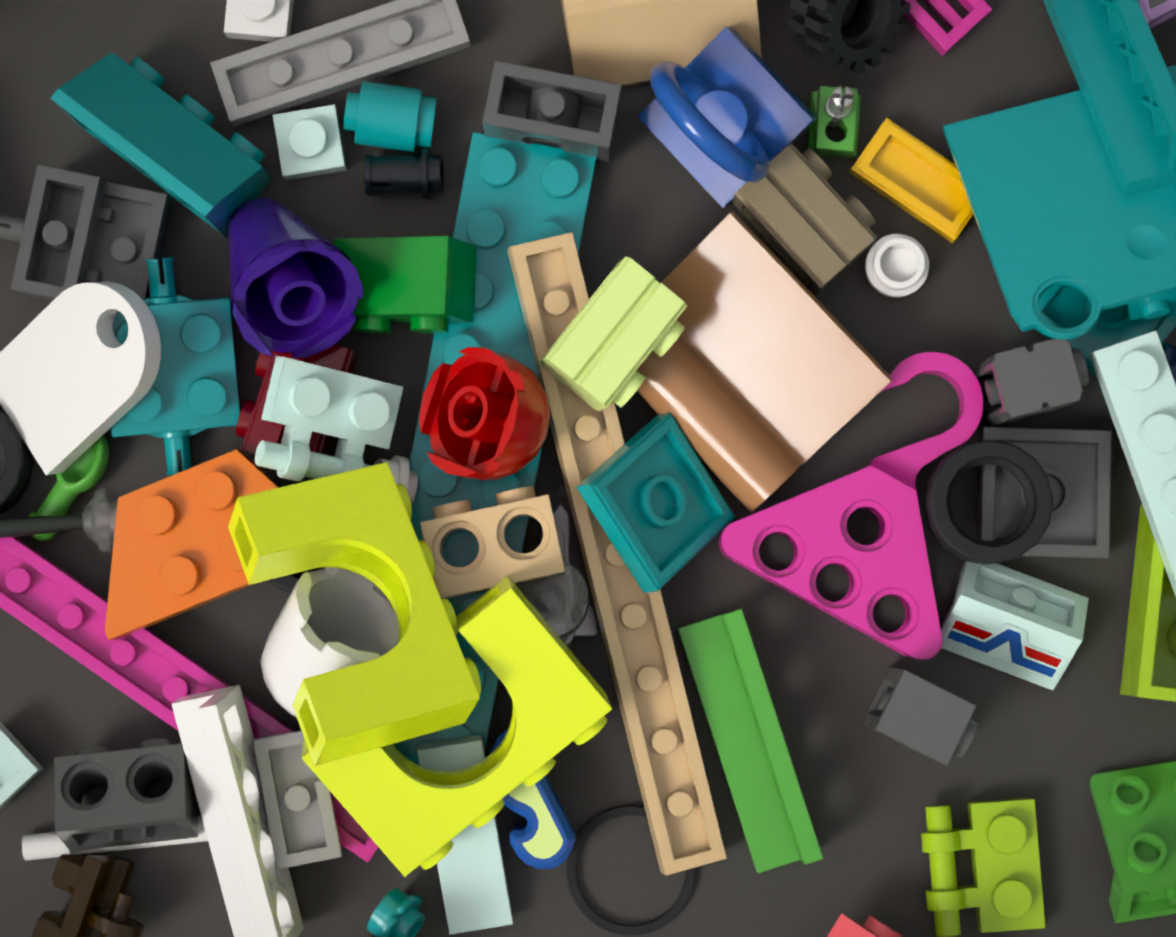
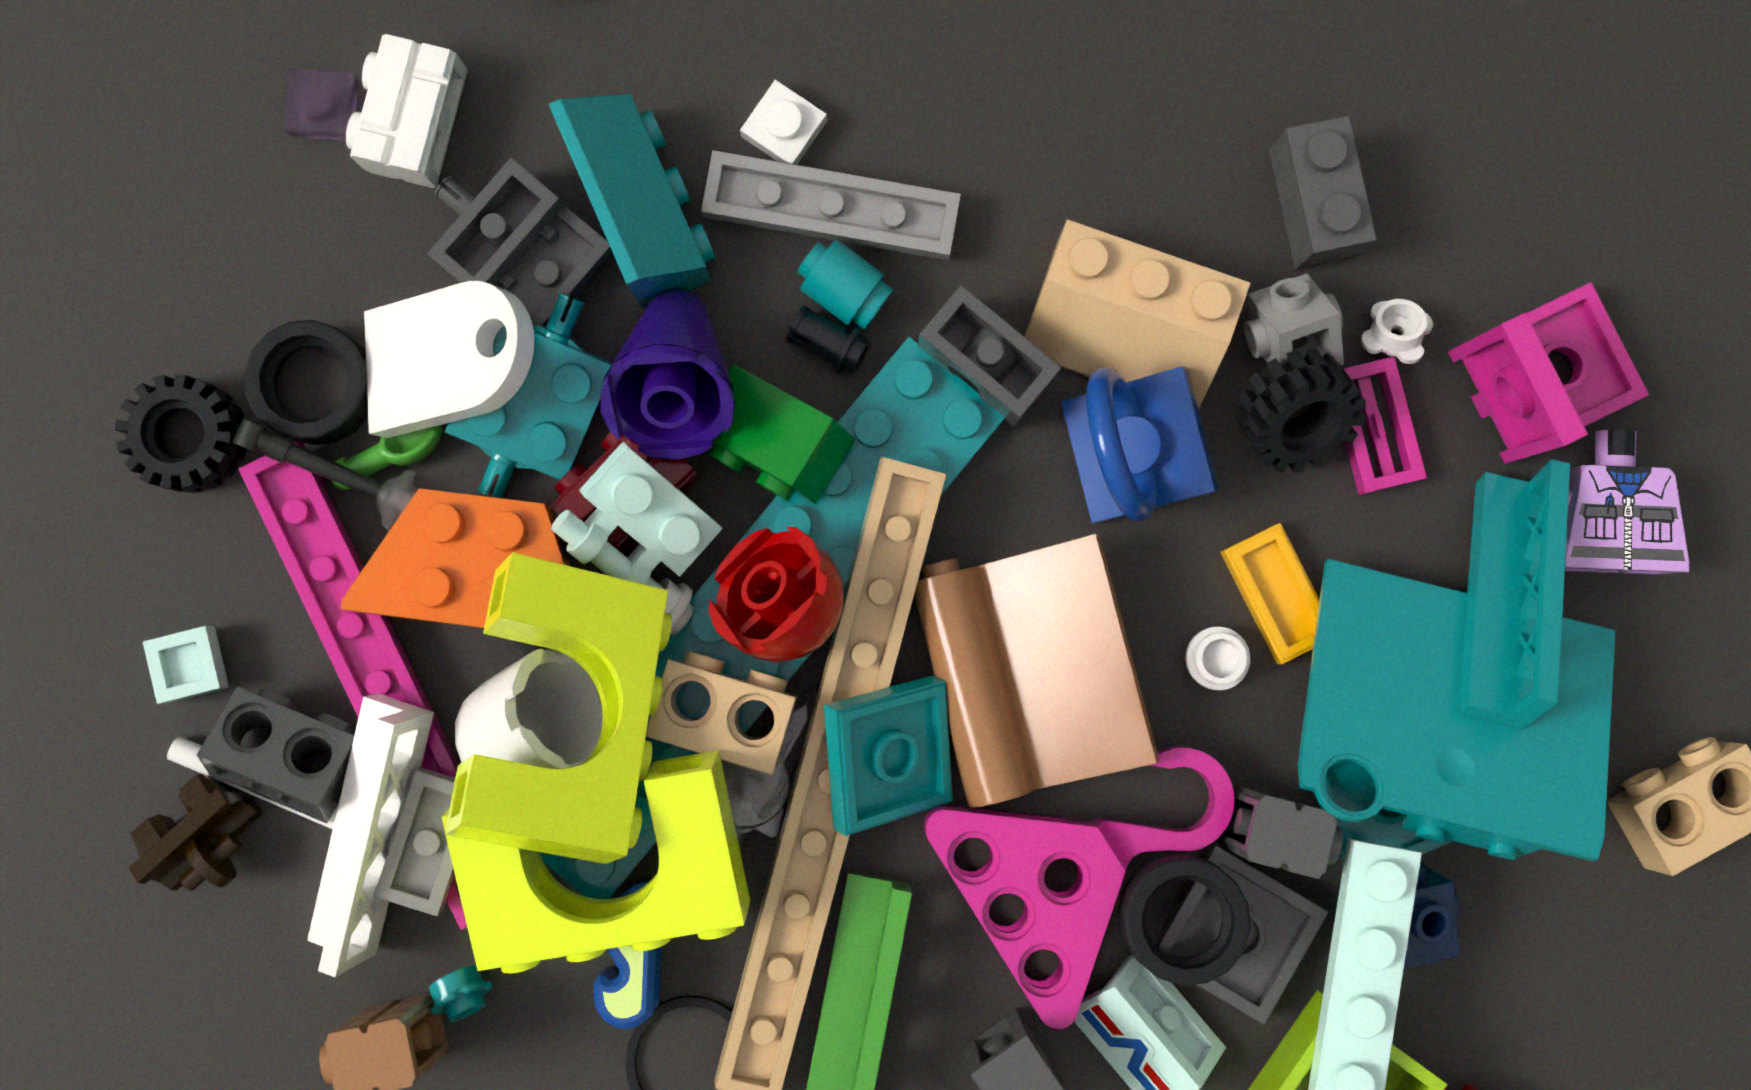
camera: 25 degrees right, 0 degrees up
(309, 142) = (762, 267): light aqua plate -> none
(474, 869) = (549, 993): light aqua tile -> none
(615, 335) = (933, 588): yellowish green brick -> none
(806, 217) = (1162, 573): dark tan brick -> none
(839, 109) = (1241, 491): bright green piece -> none

